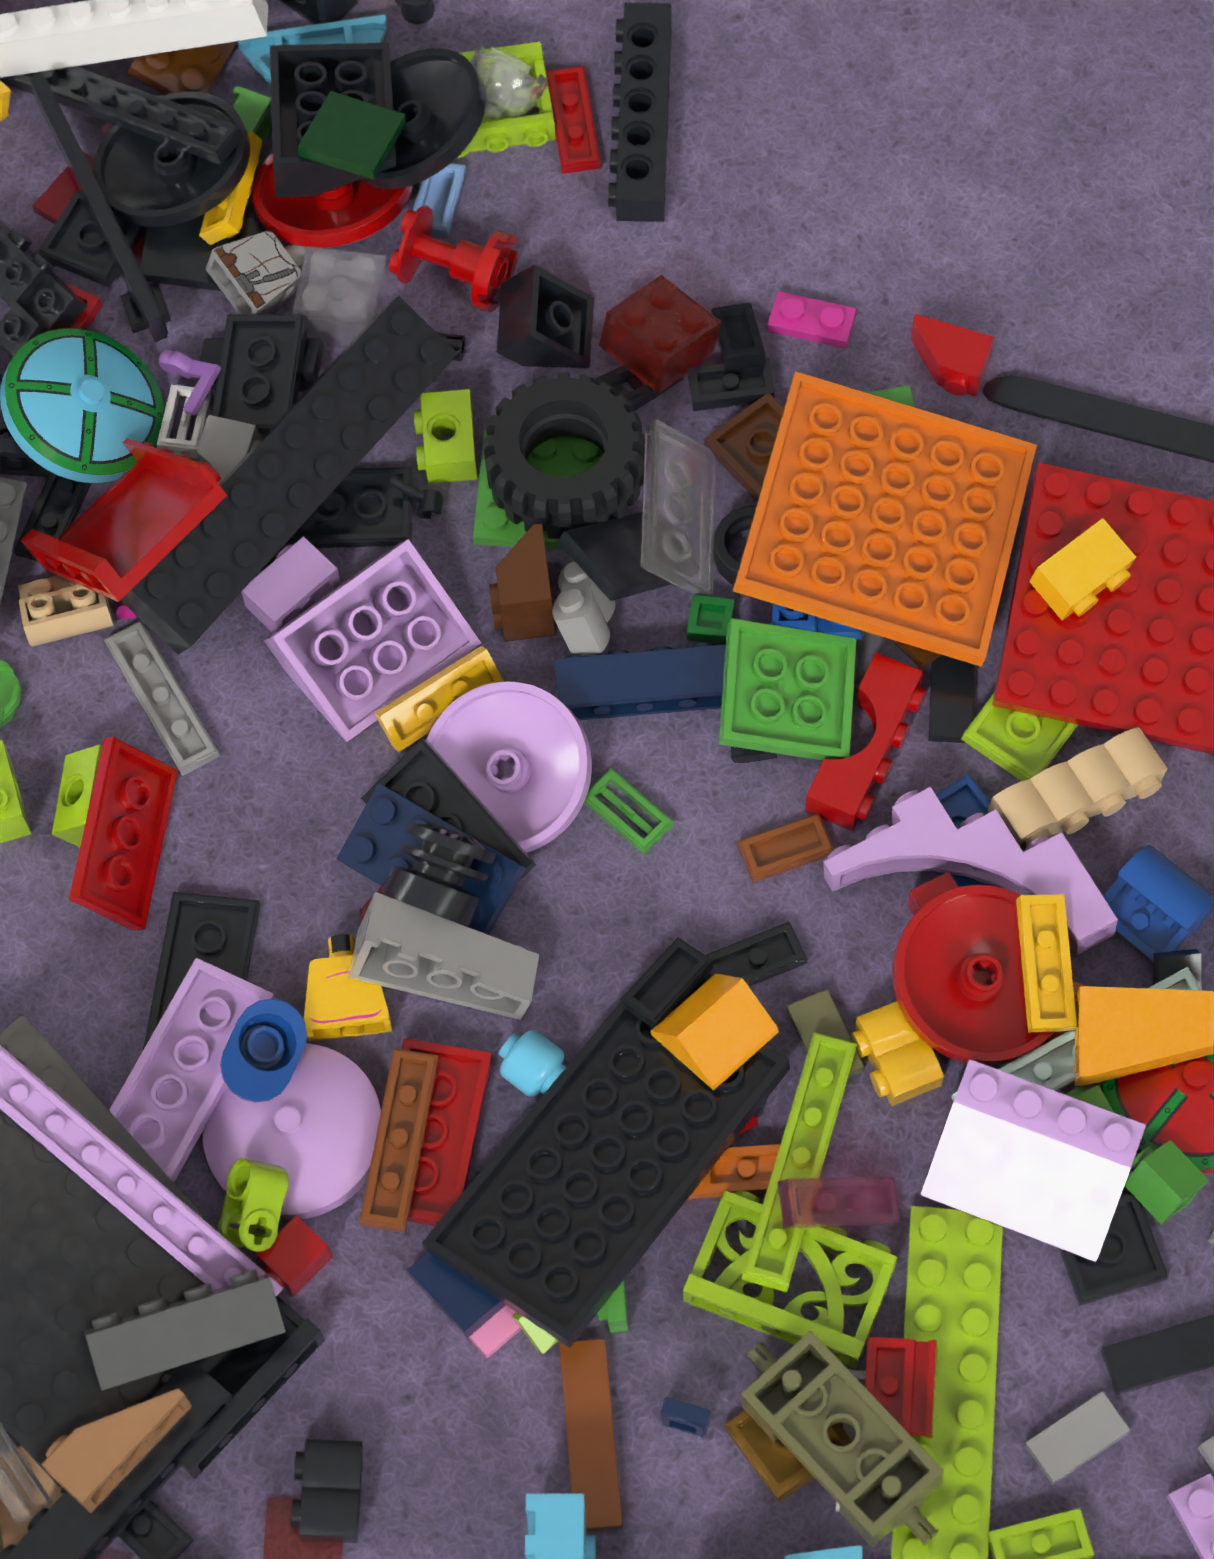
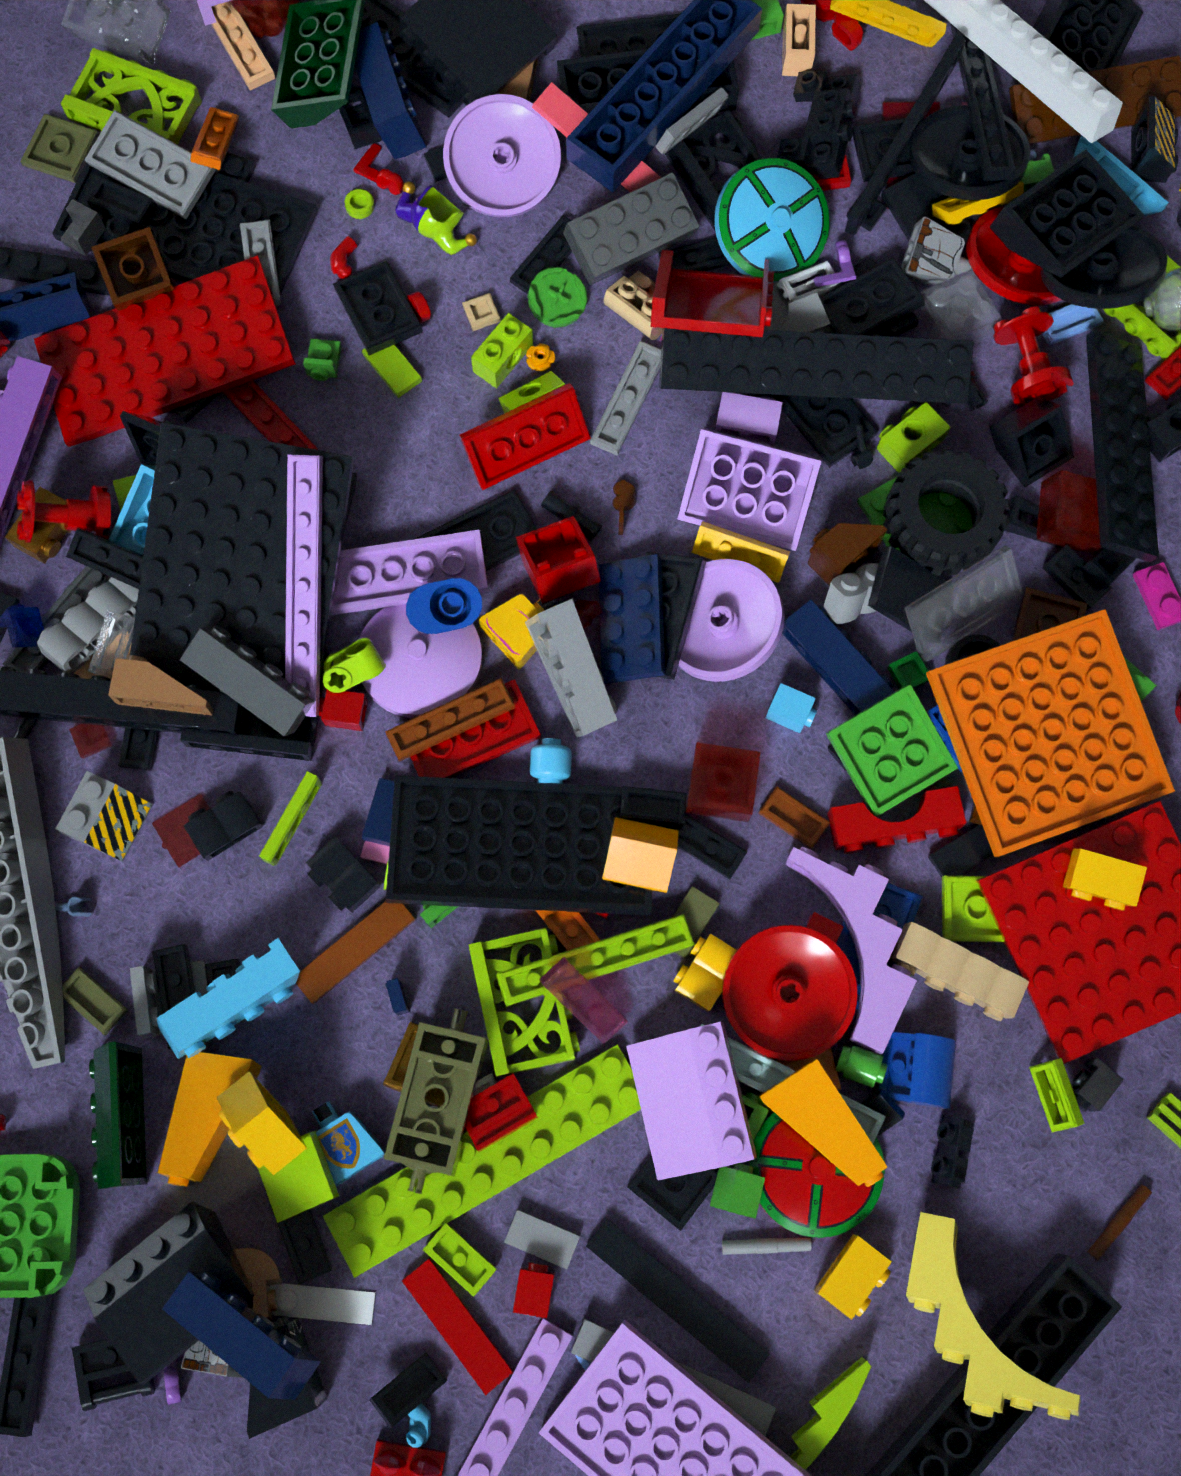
camera: 50 degrees right, 10 degrees up
(38, 769) = (540, 364): none -> light orange plate
(255, 850) = (563, 510): none -> black pin
(281, 786) = (624, 500): none -> reddish brown piece
(300, 894) = (558, 559): none -> red container
(351, 135) = (1059, 237): dark green tile -> none
(382, 1404) = (291, 819): none -> lime tile
(439, 873) = (616, 627): black wheel -> none
(493, 1388) = (342, 875): none -> black brick
(623, 240) = (1121, 447): none -> black plate
(653, 835) = (746, 734): bright green tile -> none
(661, 765) = (791, 708): none -> medium azure brick
(693, 889) = (723, 782): none -> clear red brick
(1046, 963) = (821, 1027): yellow plate -> none
(1114, 957) = (861, 1065): none -> bright green brick
(1131, 1481) = (534, 1290): none -> red brick

